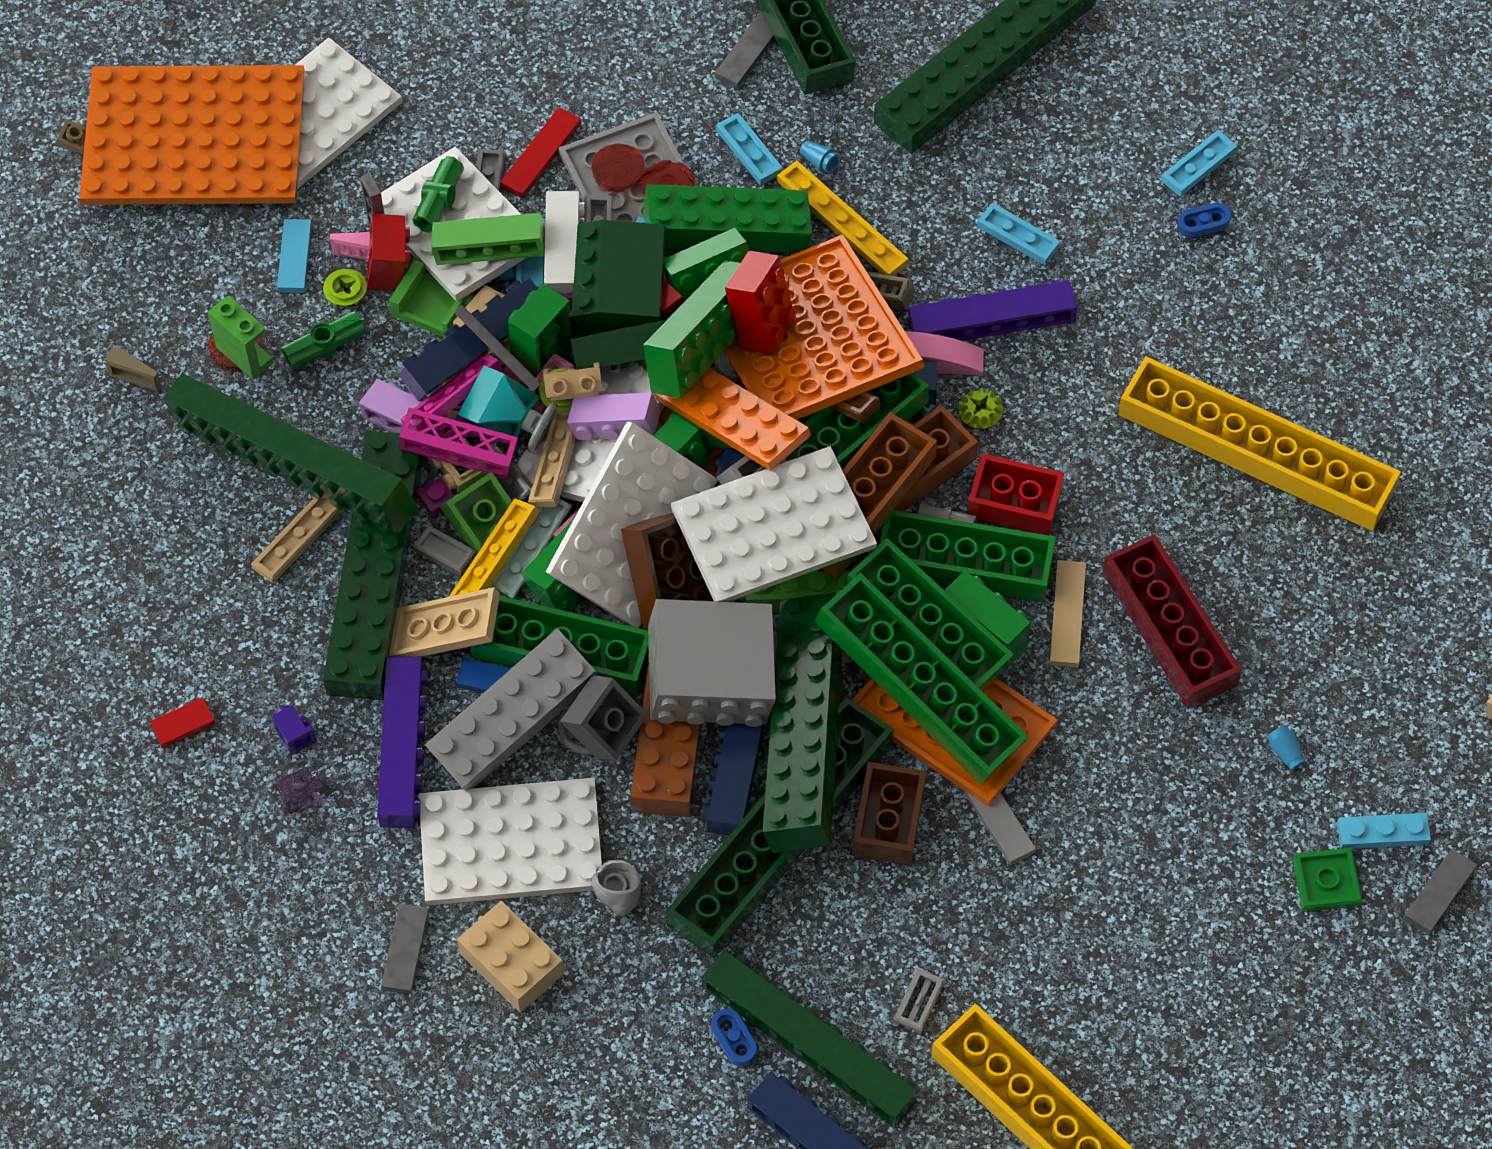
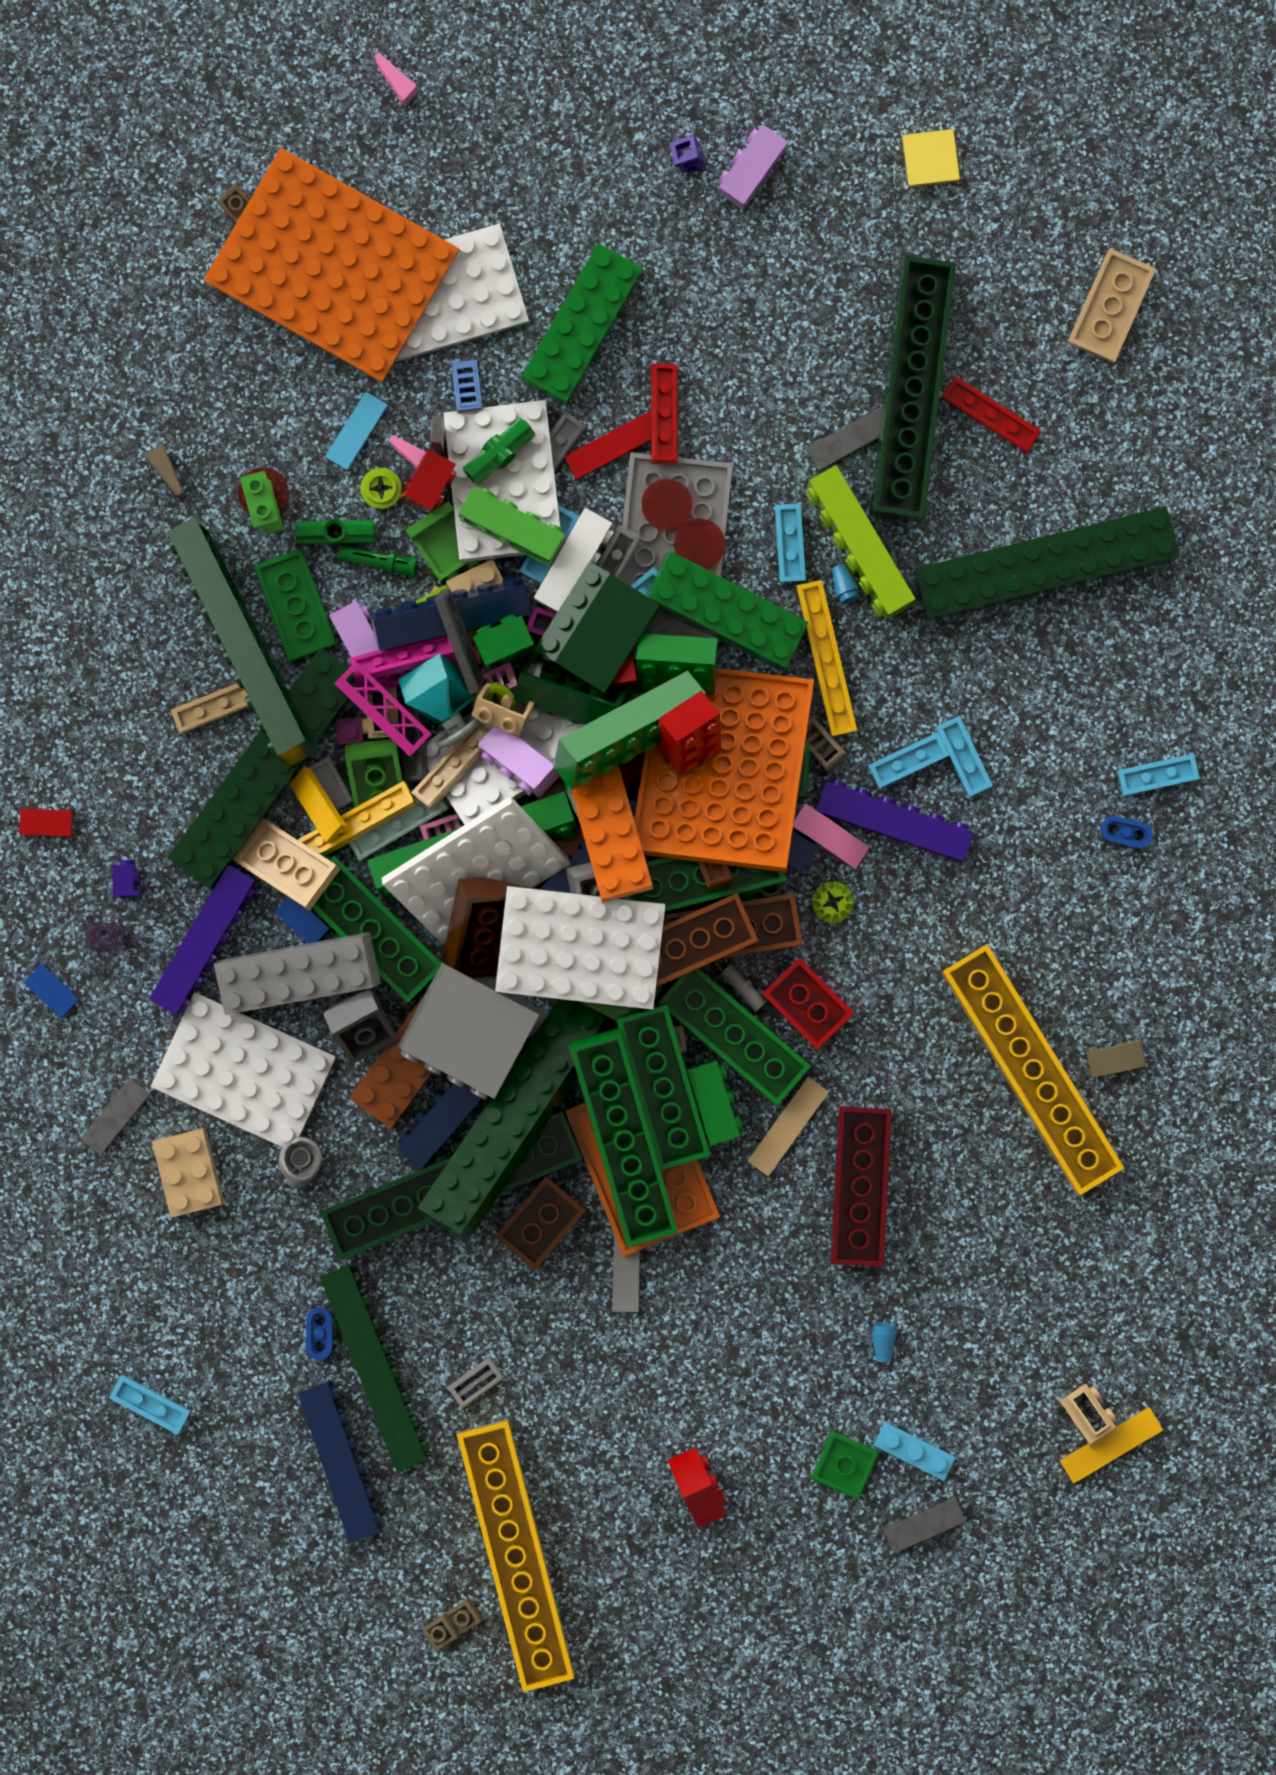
camera: 30 degrees right, 25 degrees up
(273, 868) = (51, 990): none -> blue tile
(319, 413) = (295, 605): none -> green tile
(387, 171) = (467, 406): none -> medium blue slope
(391, 340) = (390, 562): none -> green pin
(443, 563) = (317, 804): none -> yellow tile
(452, 75) = (582, 325): none -> green brick
(570, 105) = (664, 414): none -> red tile
(813, 111) = (860, 543): none -> lime brick
(971, 261) = (908, 760): none -> medium azure plate
(1203, 968) = (698, 1487): none -> red brick
(1326, 399) = (1116, 1058): none -> dark tan slope

